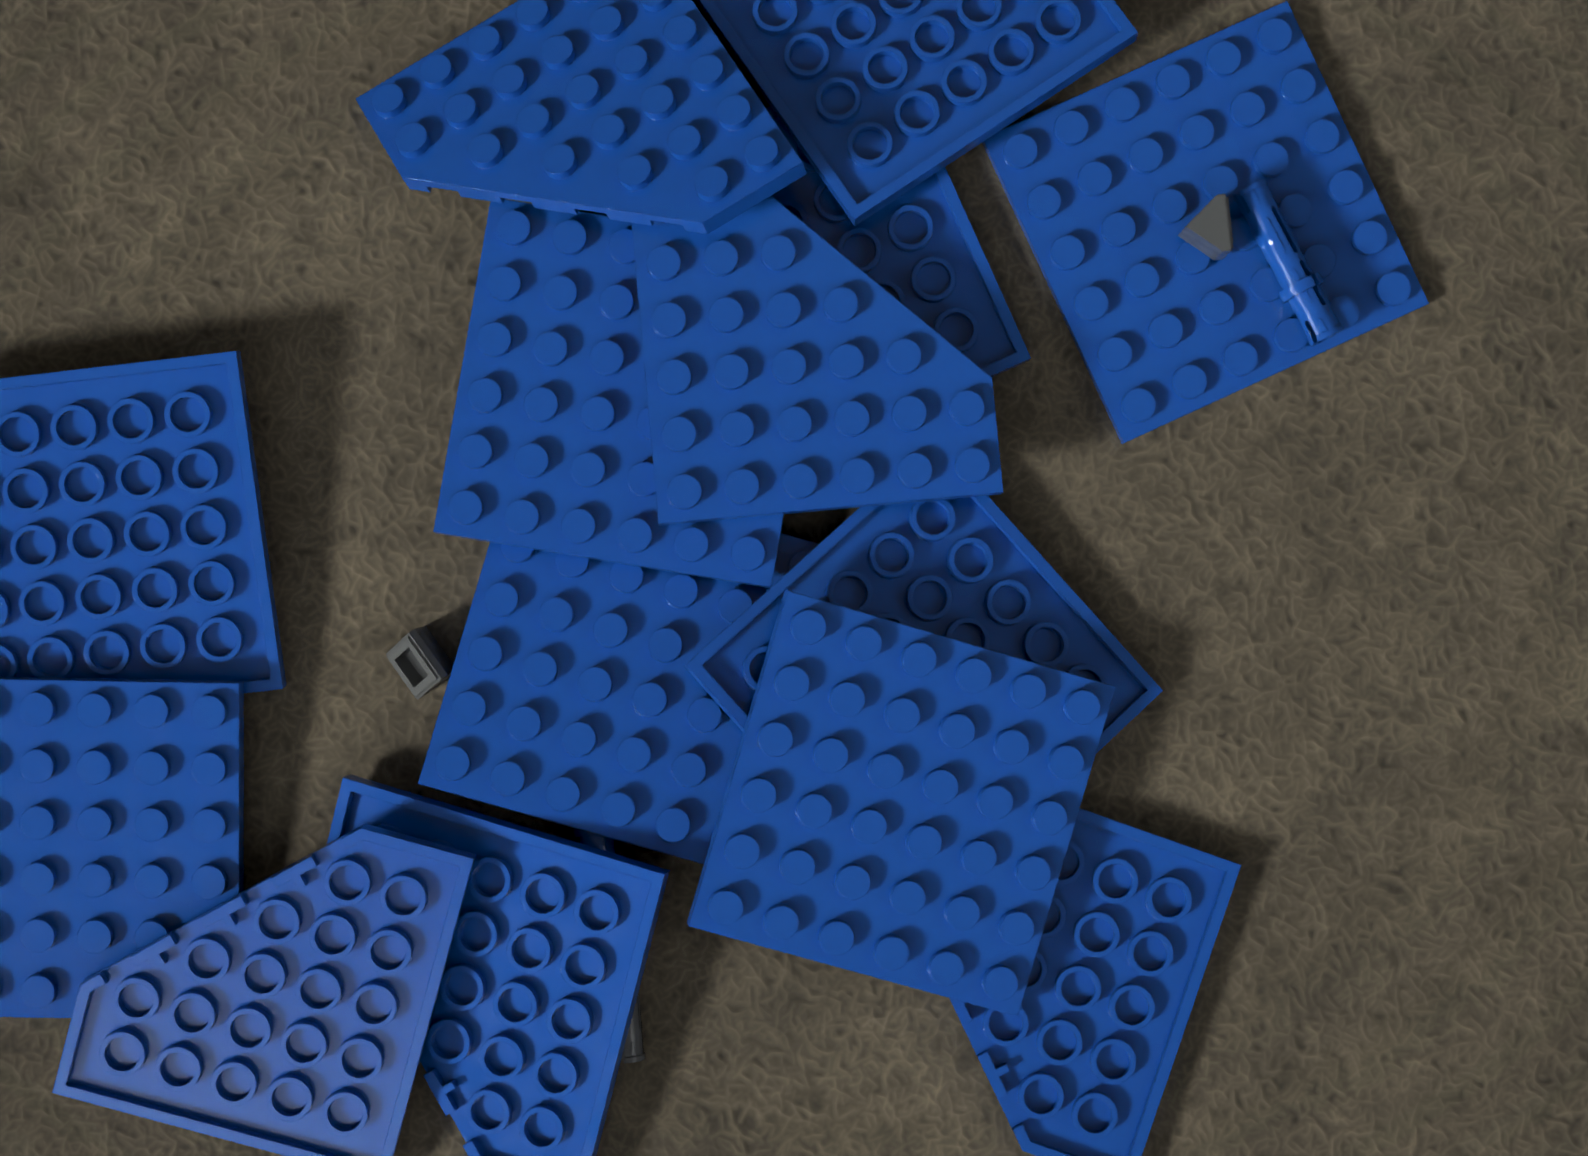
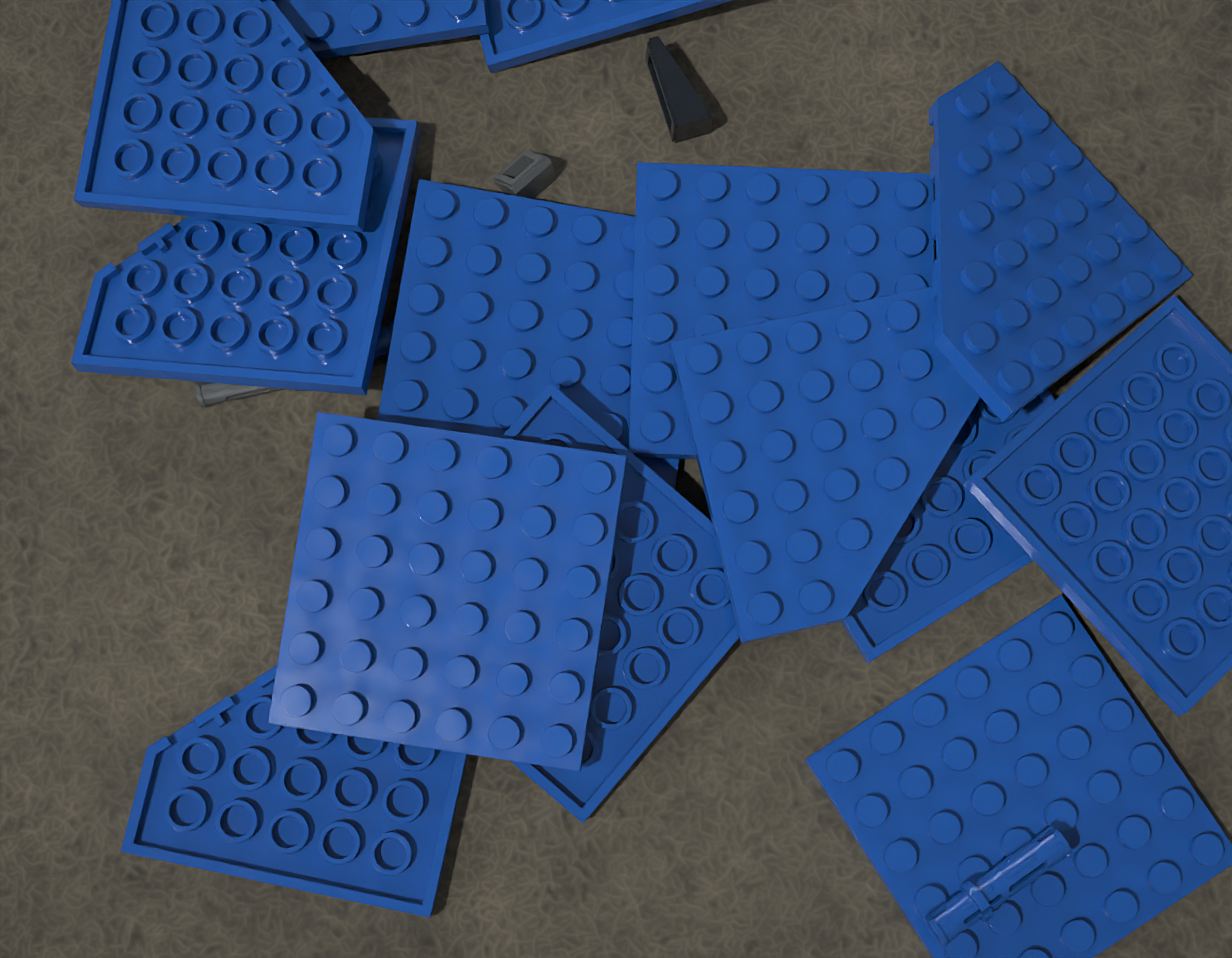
camera: 80 degrees right, 10 degrees down
(358, 472) = (680, 103): none -> black slope
(1211, 229) = (1016, 805): dark grey slope -> none

